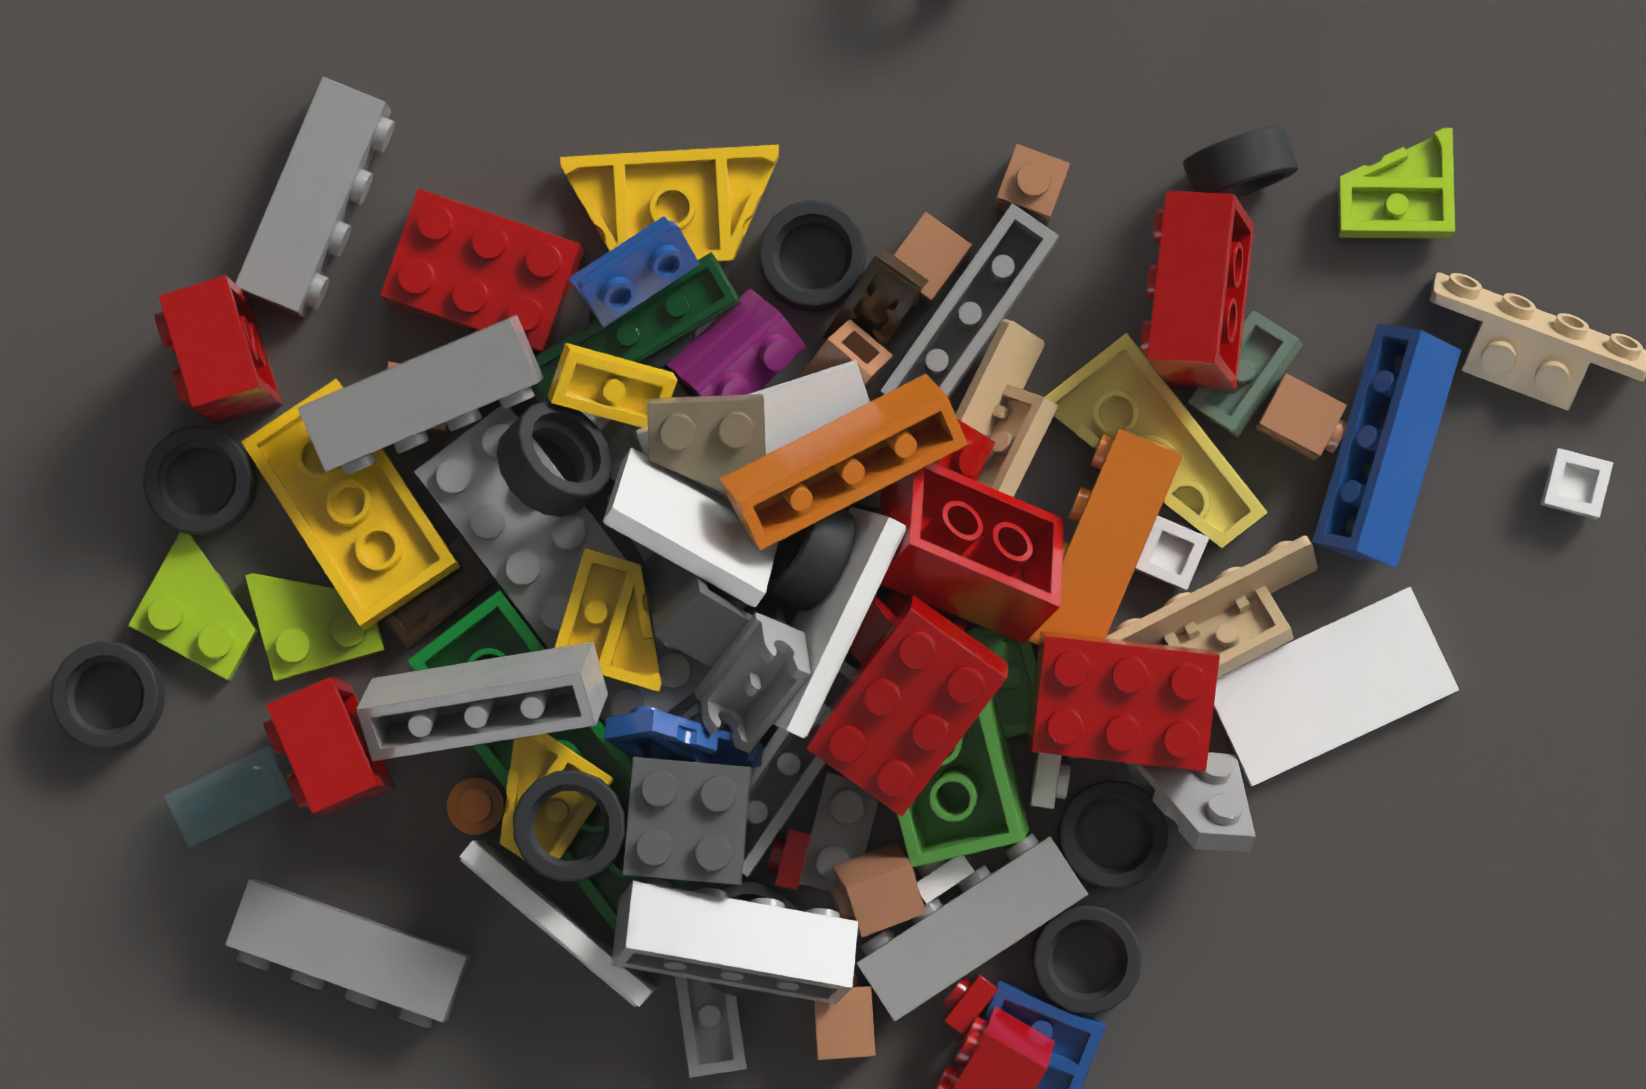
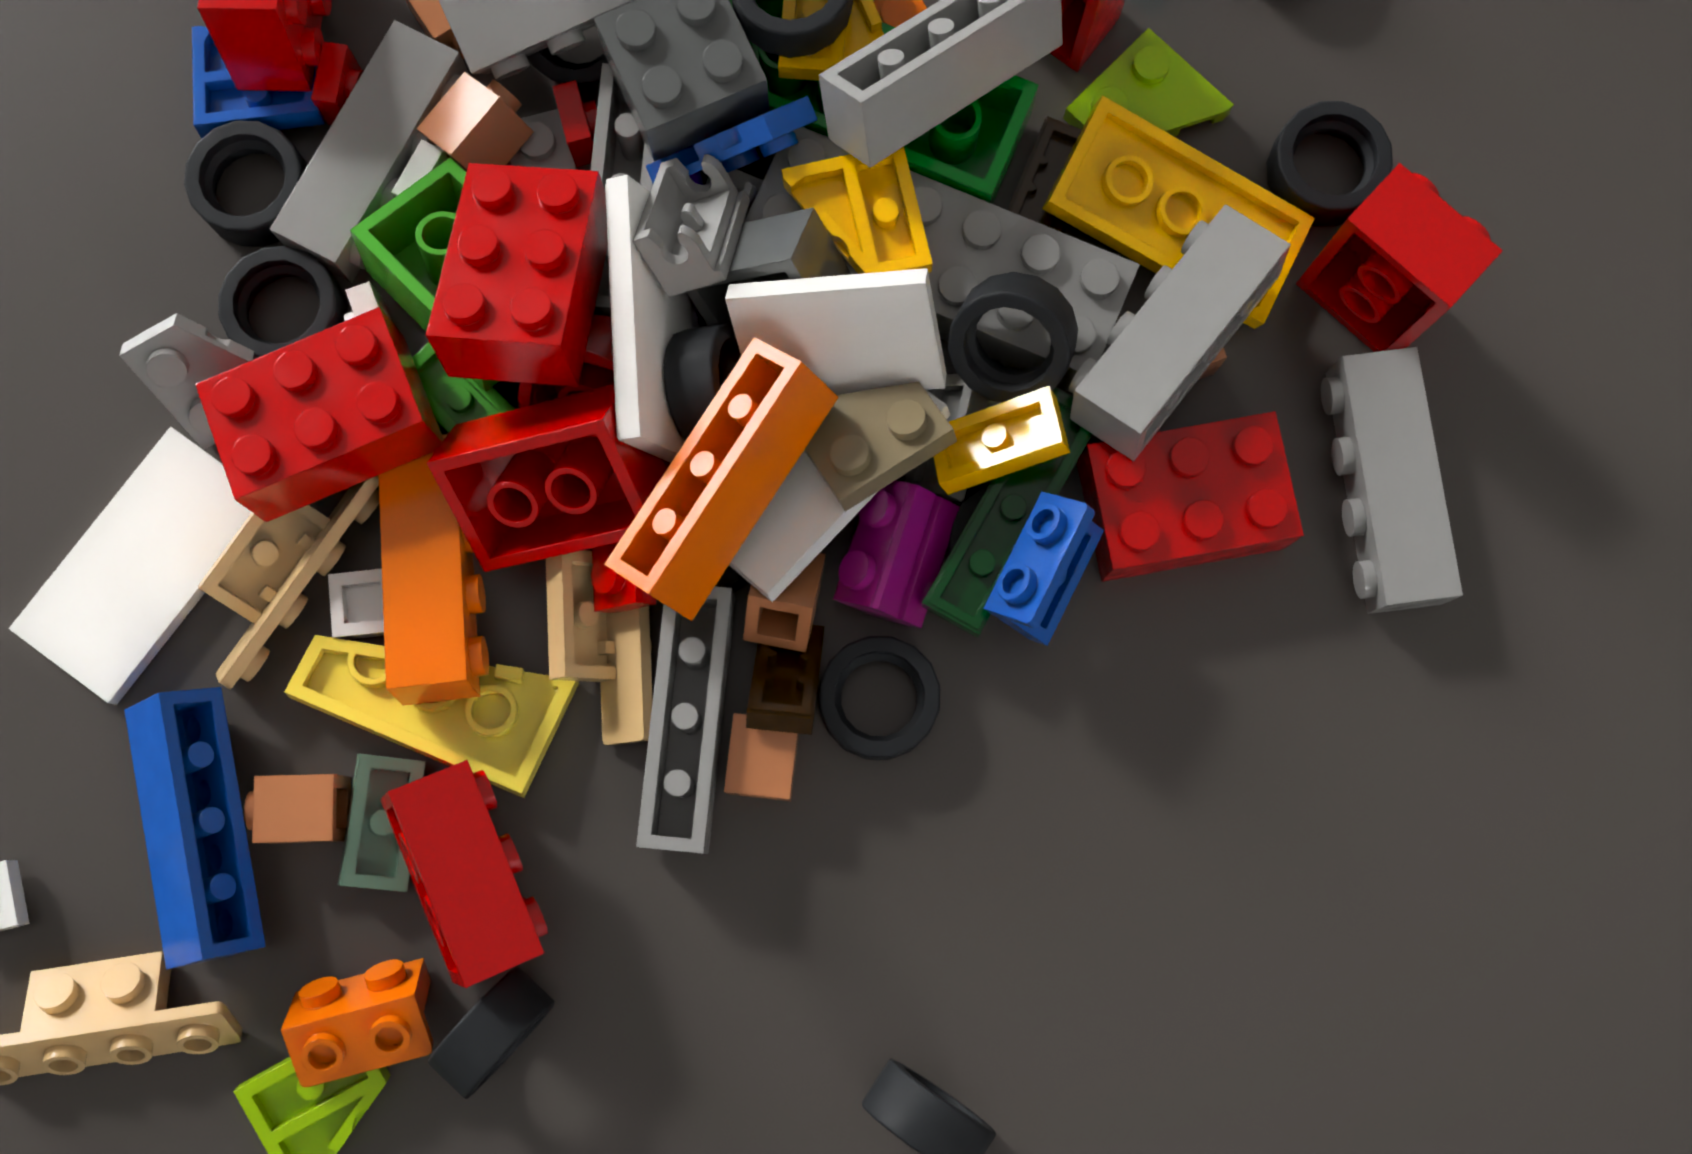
camera: 145 degrees right, 5 degrees down
(195, 611) = (1256, 51): lime wing -> none
(701, 190) = (1028, 692): yellow wing -> none
(1032, 183) = (697, 892): nougat brick -> none
(1335, 231) = (358, 1022): none -> orange bracket

